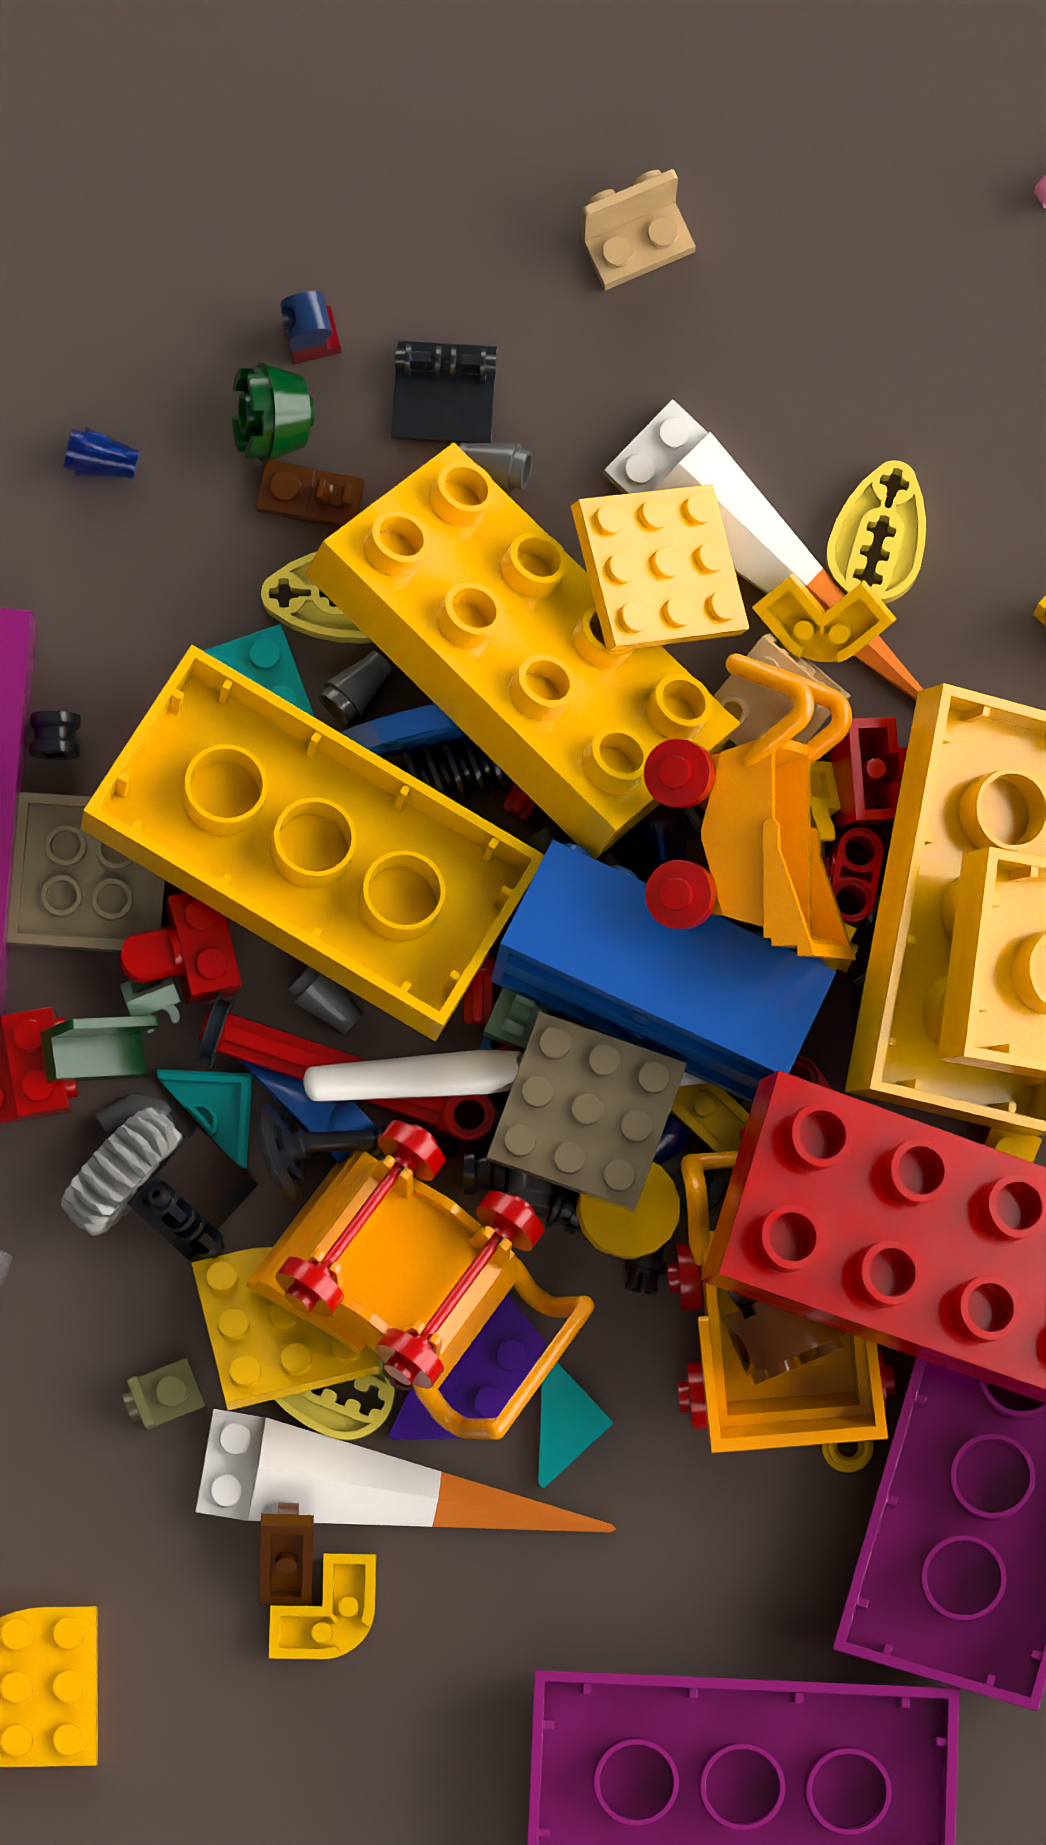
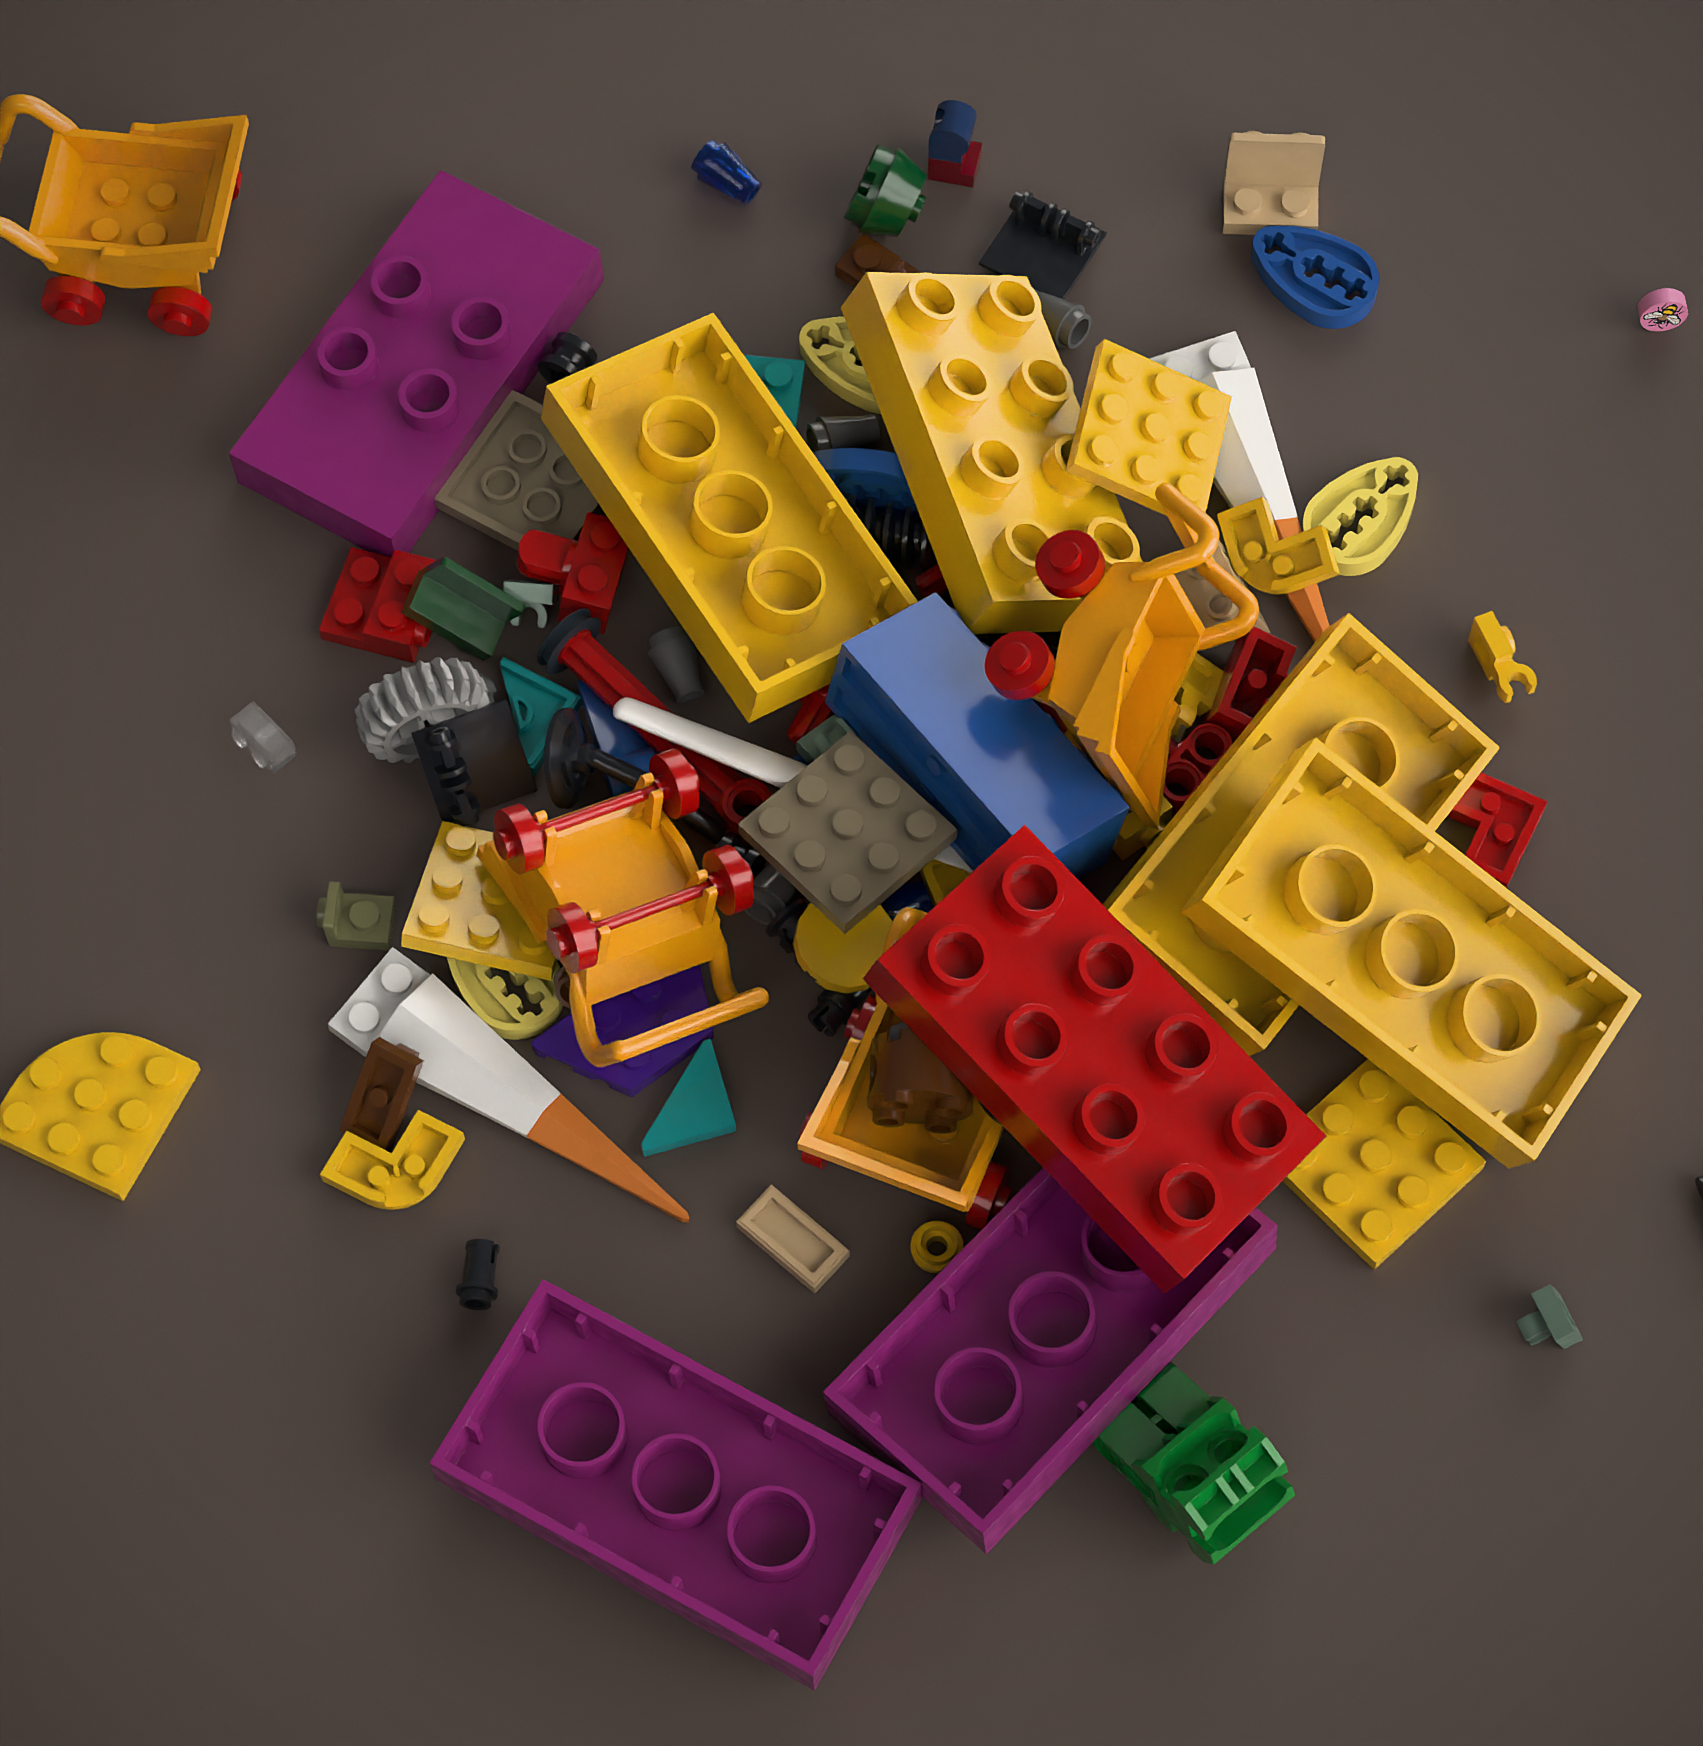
camera: 30 degrees right, 15 degrees down
(459, 1676) = (479, 1271): none -> black pin
(716, 1501) = (793, 1239): none -> tan tile
(718, 325) = (1308, 297): none -> blue piece

